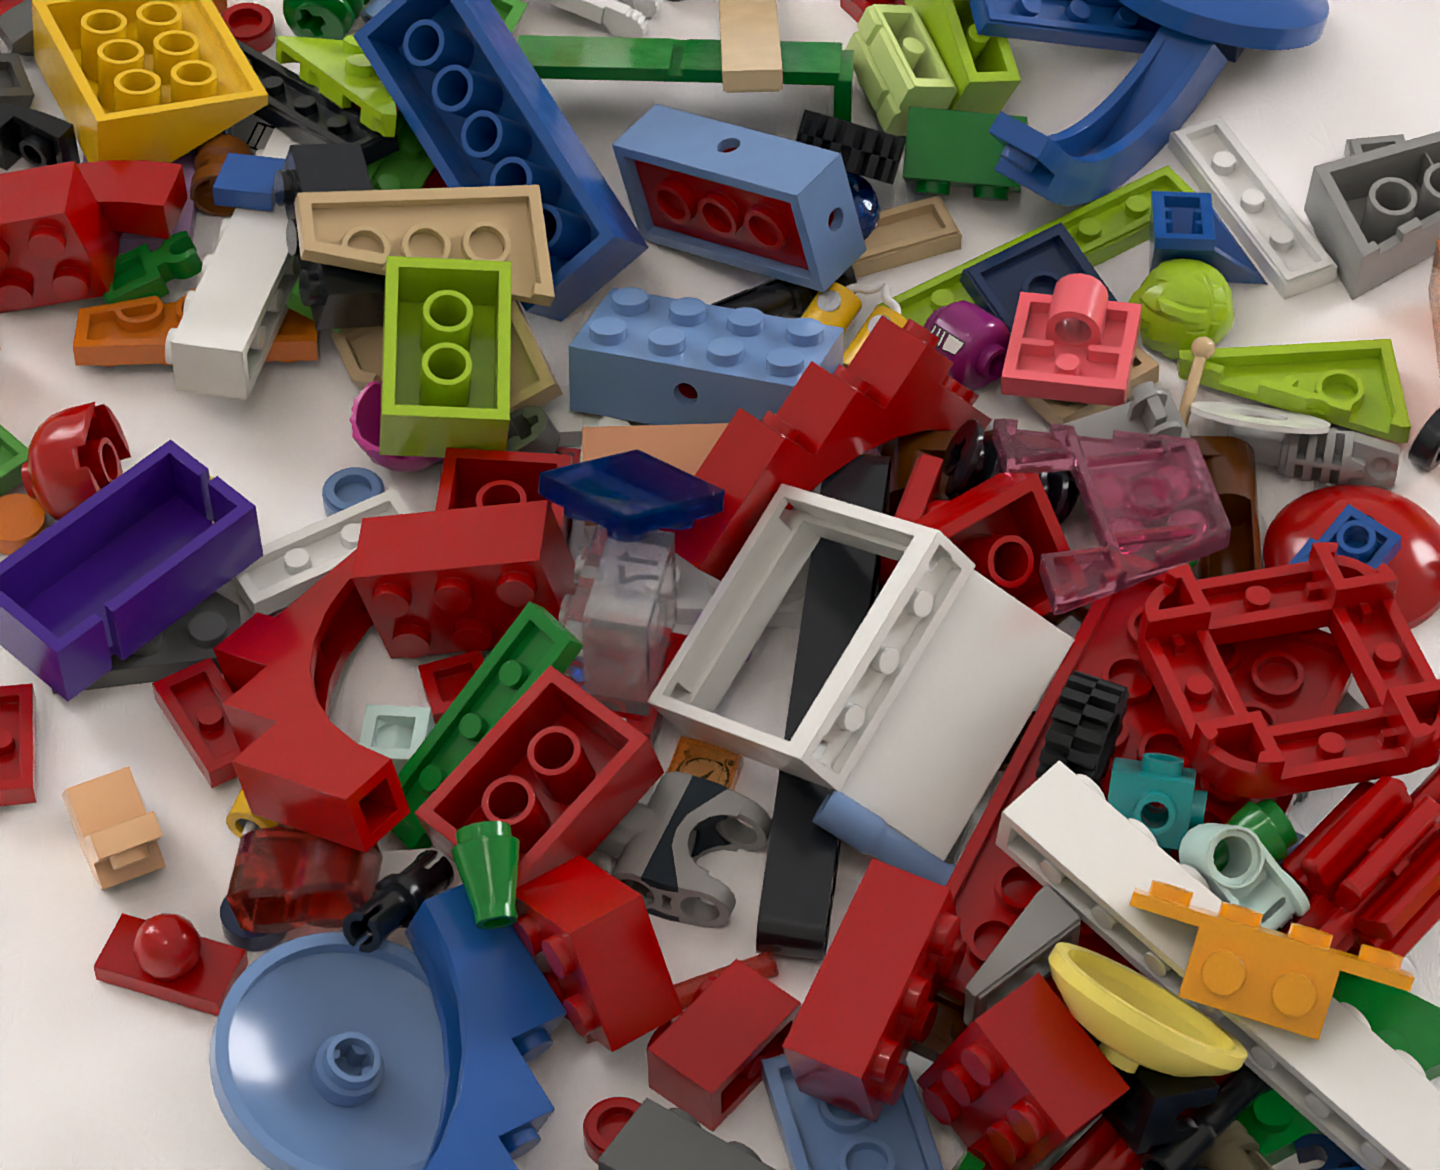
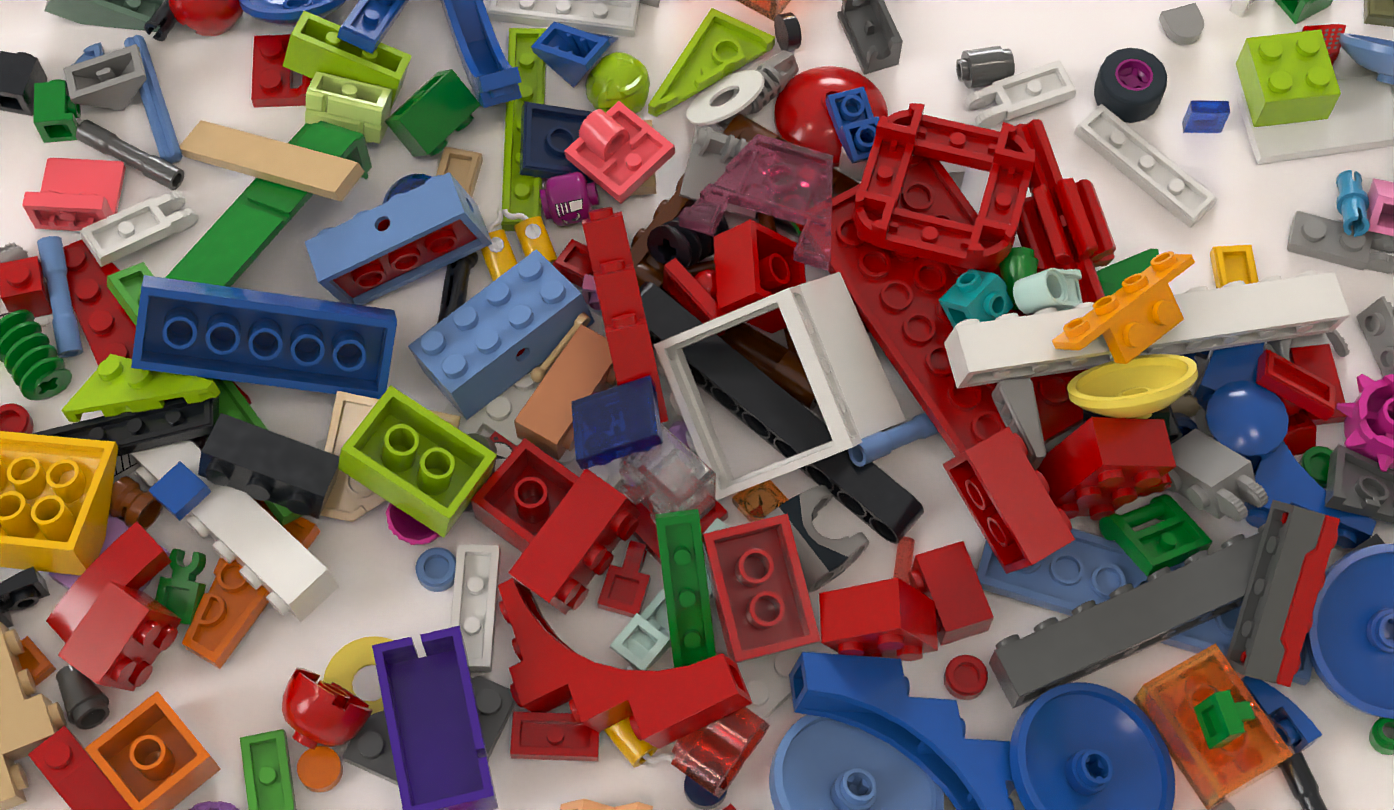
camera: 60 degrees left, 15 degrees up
(397, 900) = (775, 704): black pin -> none
(449, 223) = (325, 415): tan wing -> none
(489, 871) = (814, 645): green cone -> none
(862, 148) = (396, 167): black tyre -> none
(1085, 726) = (922, 306): black tyre -> none
(1202, 350) = (660, 93): tan hinge -> none

